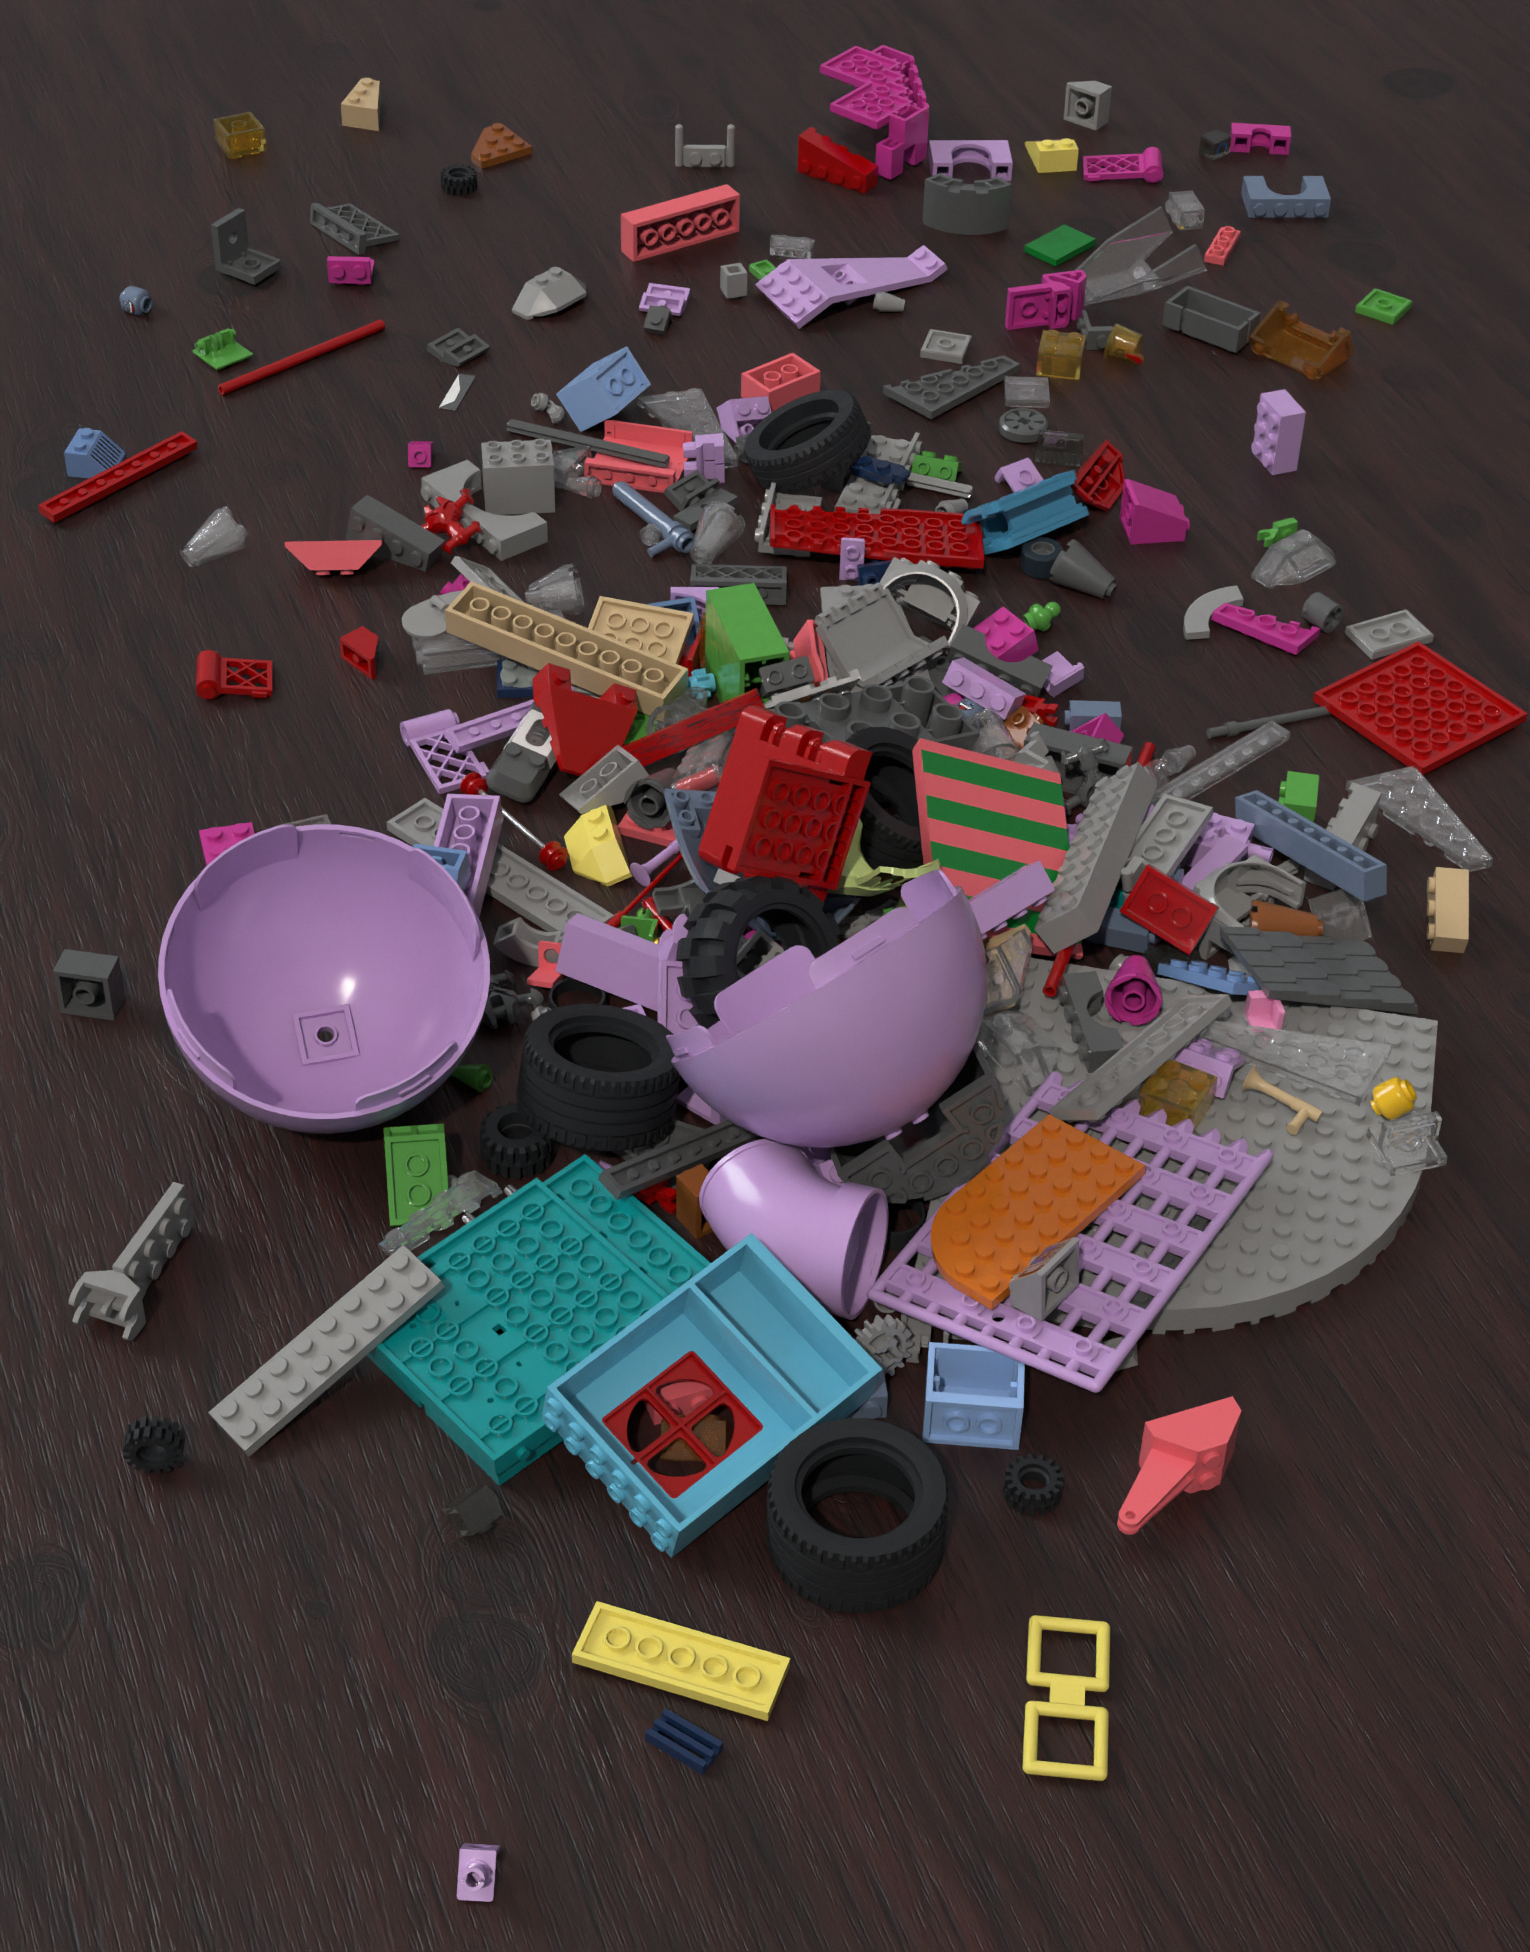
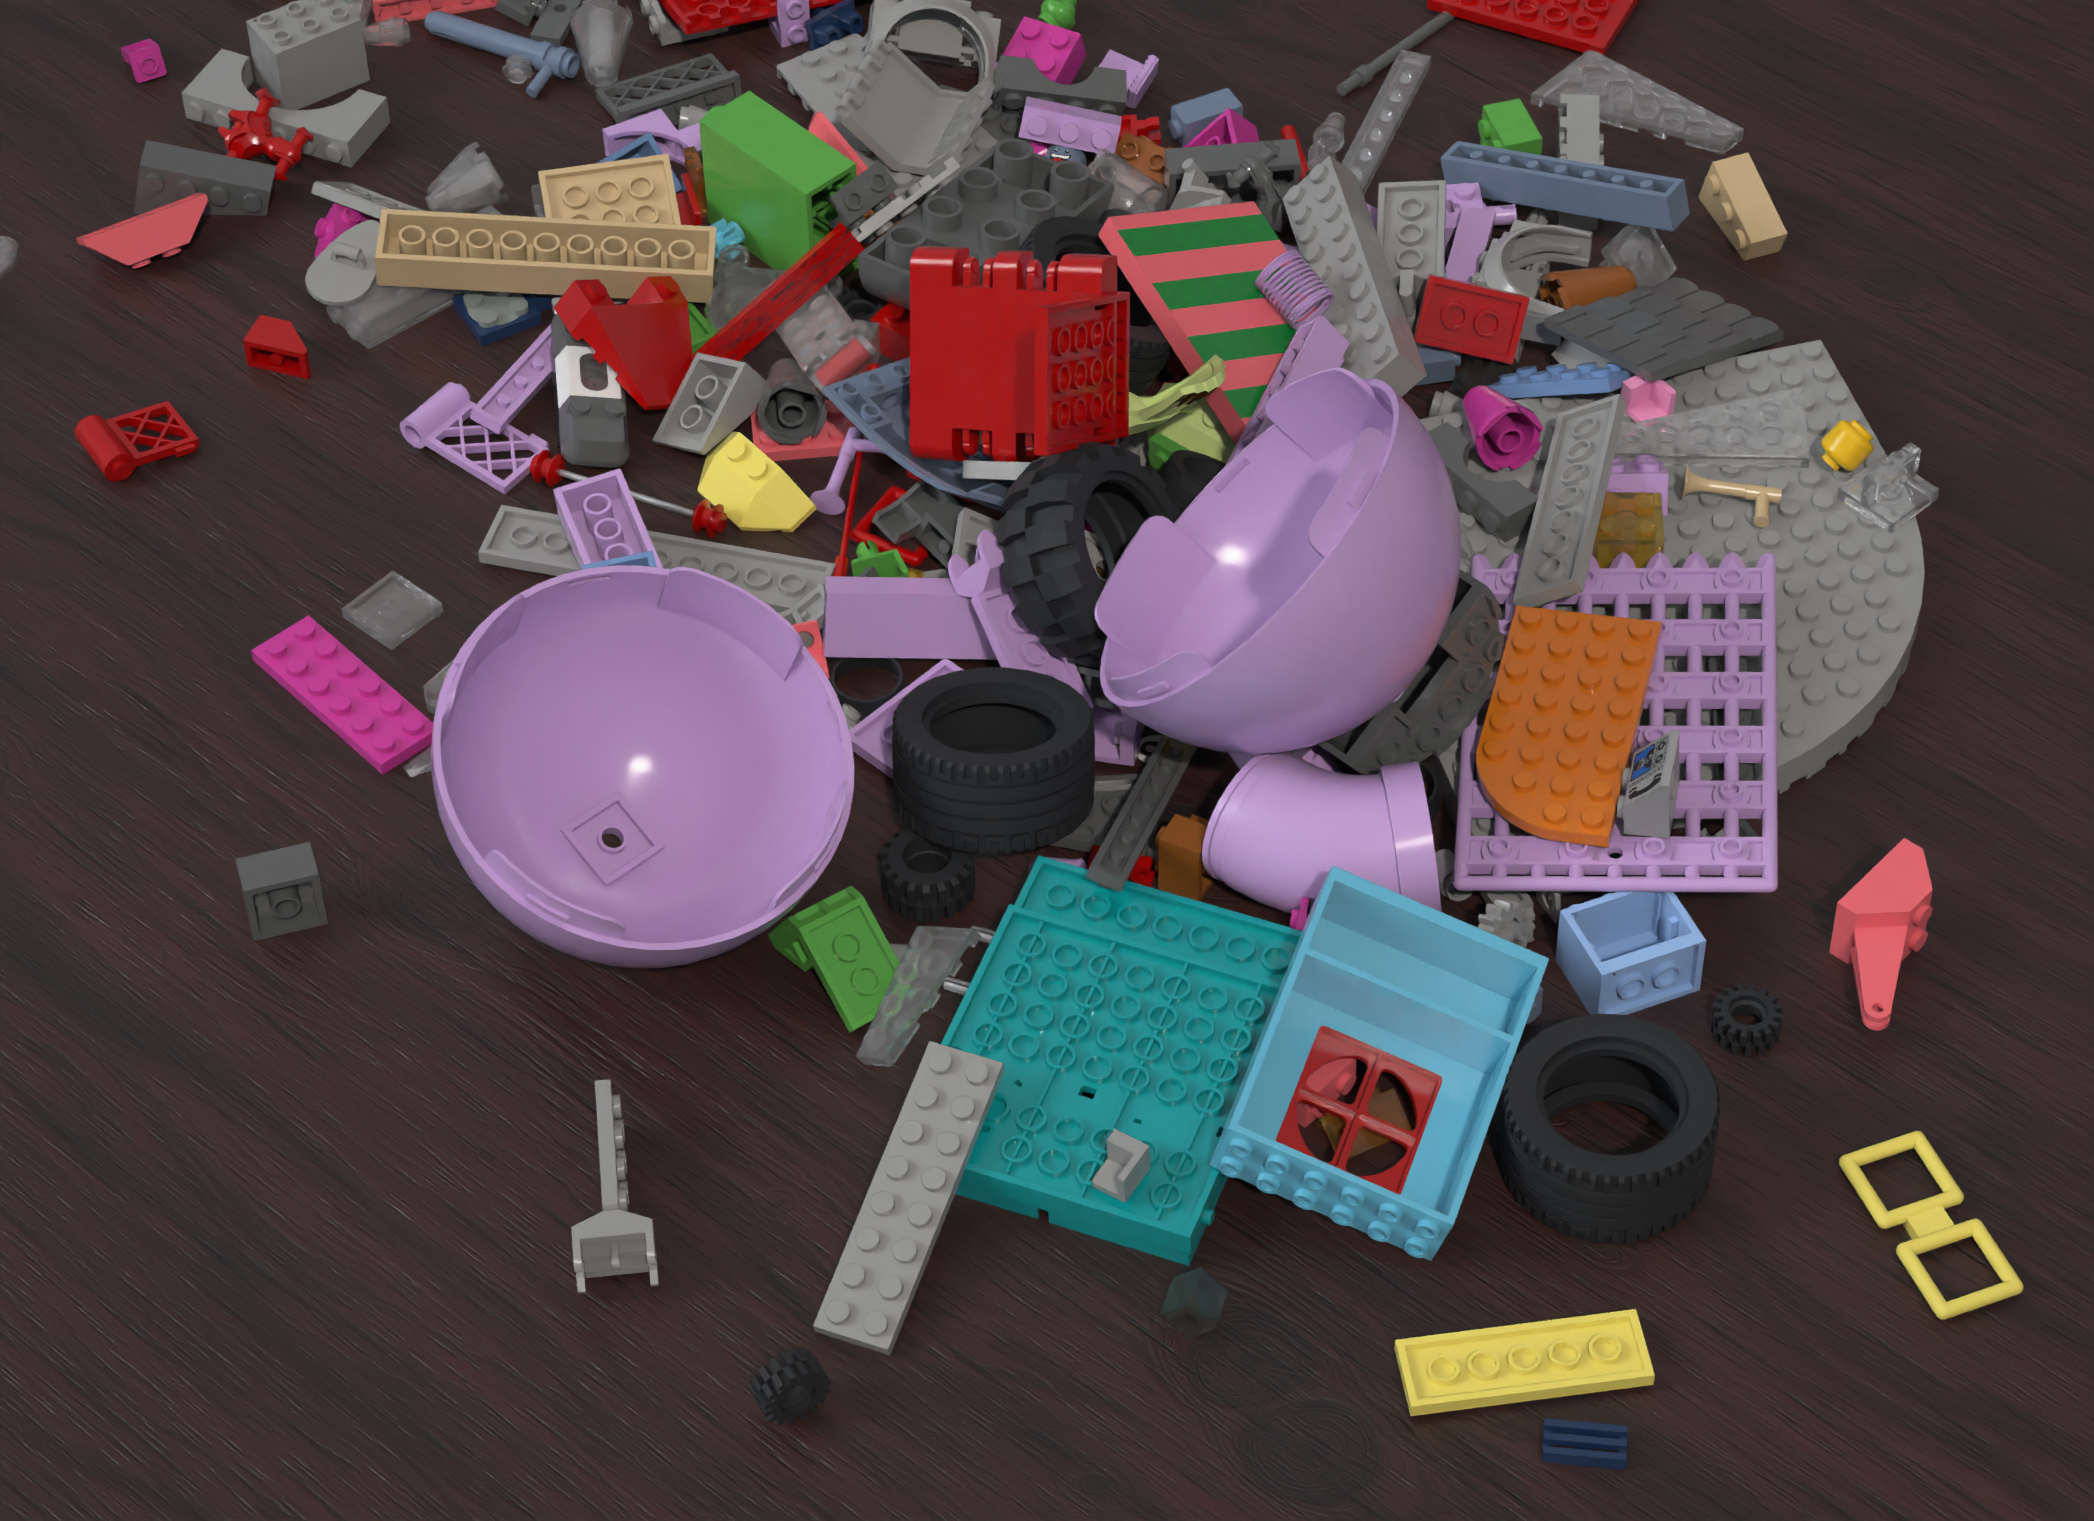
camera: 25 degrees left, 5 degrees up
(479, 1392) = (1125, 1166): none -> light grey panel
(1039, 851) = (1310, 301): none -> lavender piece

